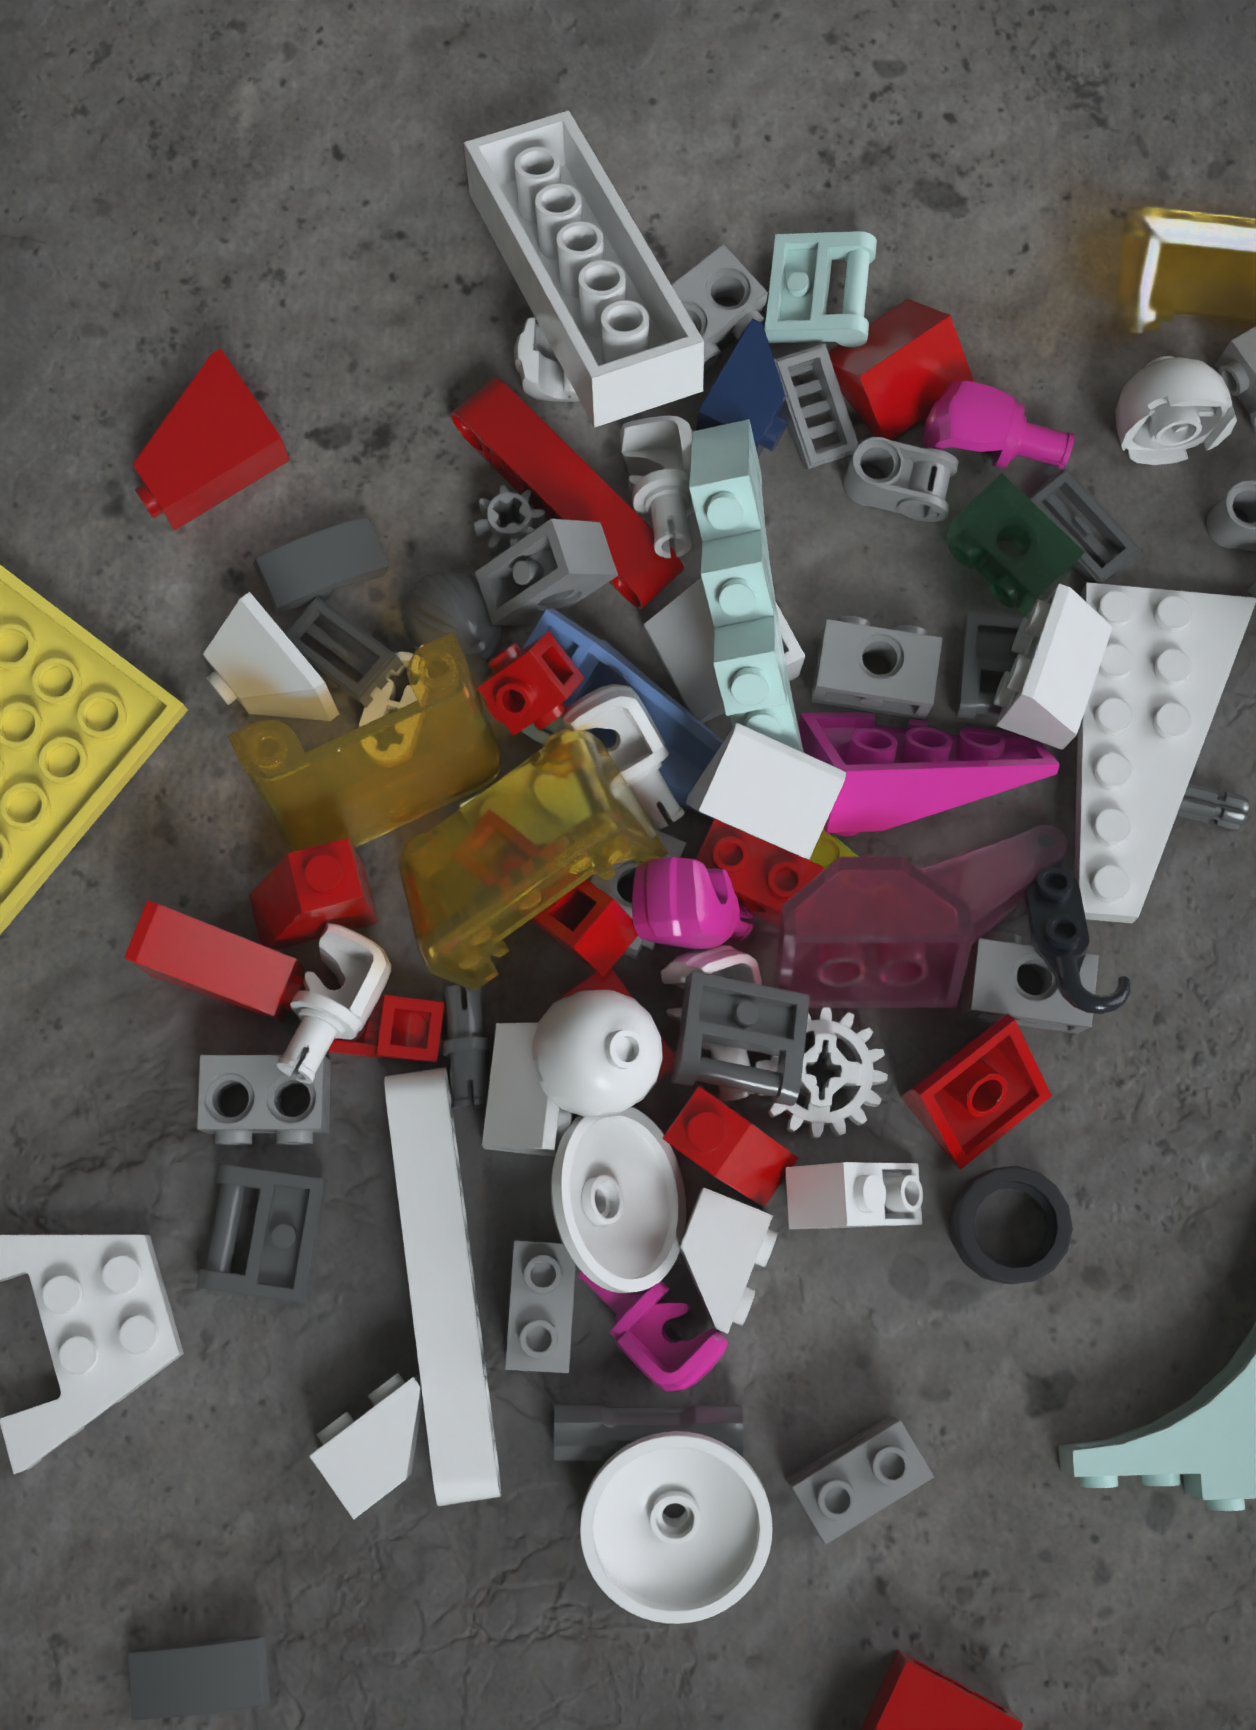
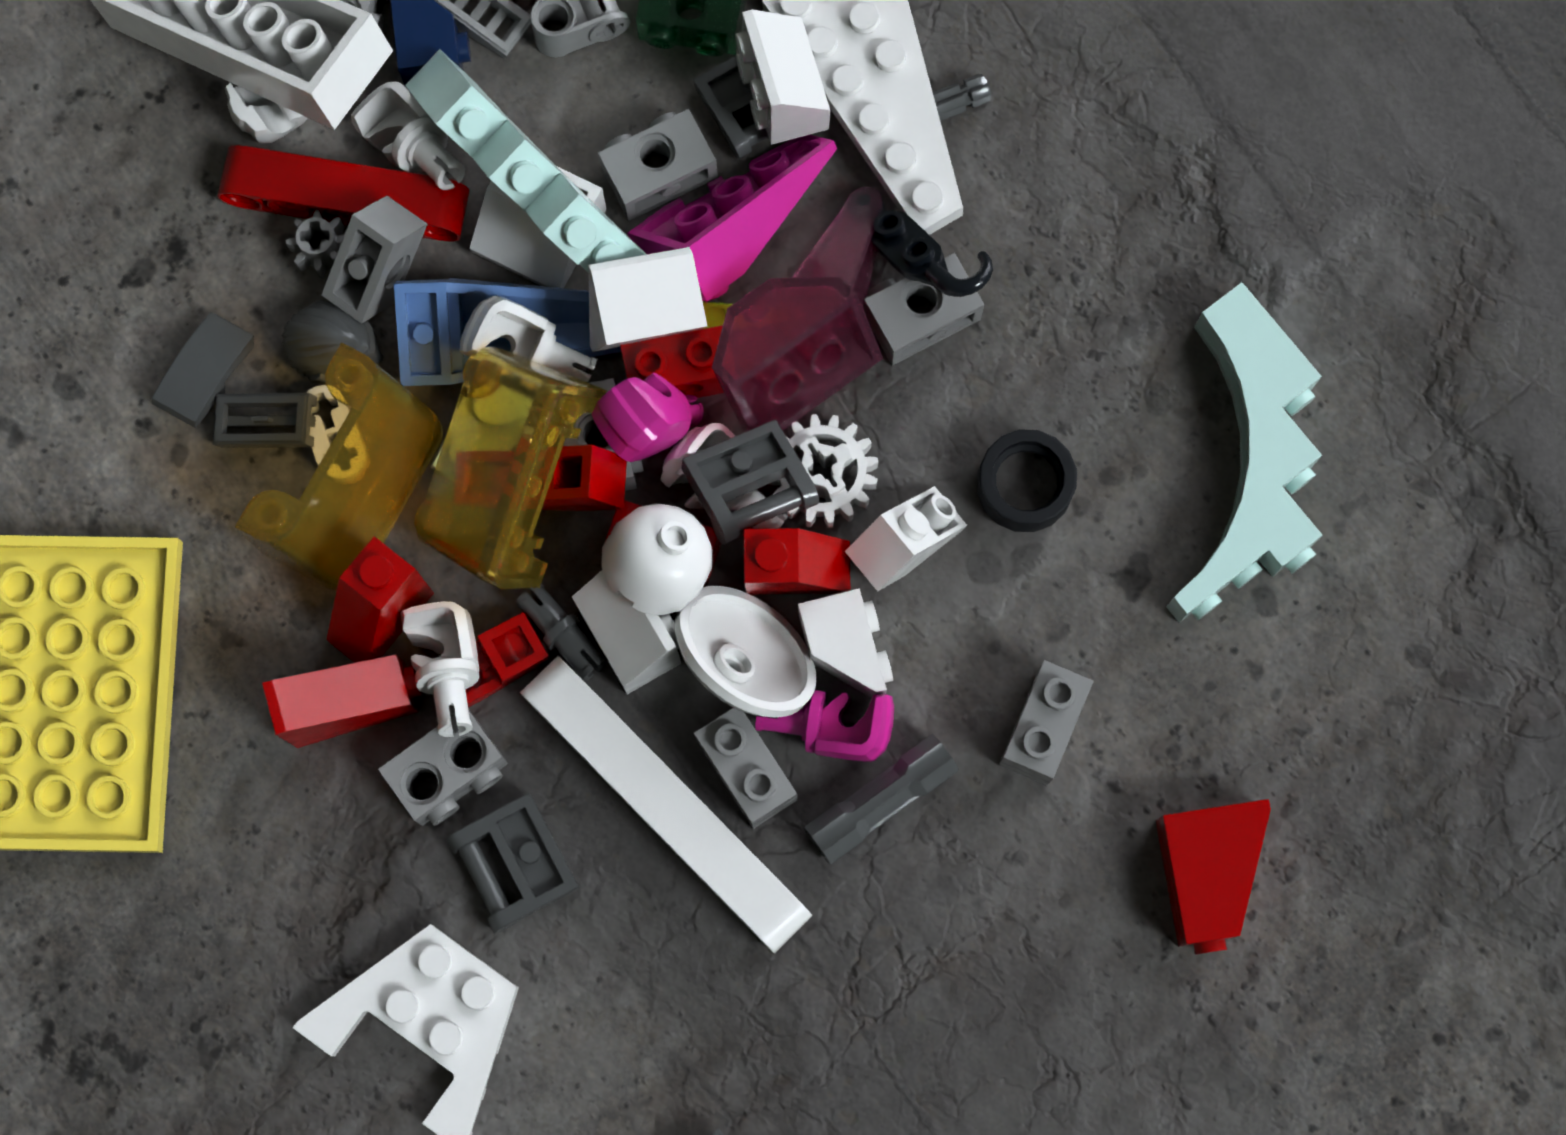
camera: 30 degrees left, 0 degrees up
(207, 446) = (55, 342): red slope -> none
(264, 668) = (220, 468): white slope -> none
(377, 1450) = (702, 947): white slope -> none
(530, 684) = (421, 343): red brick -> none
(682, 1564) = (973, 865): white dish -> none
(979, 1092) = (940, 406): red slope -> none

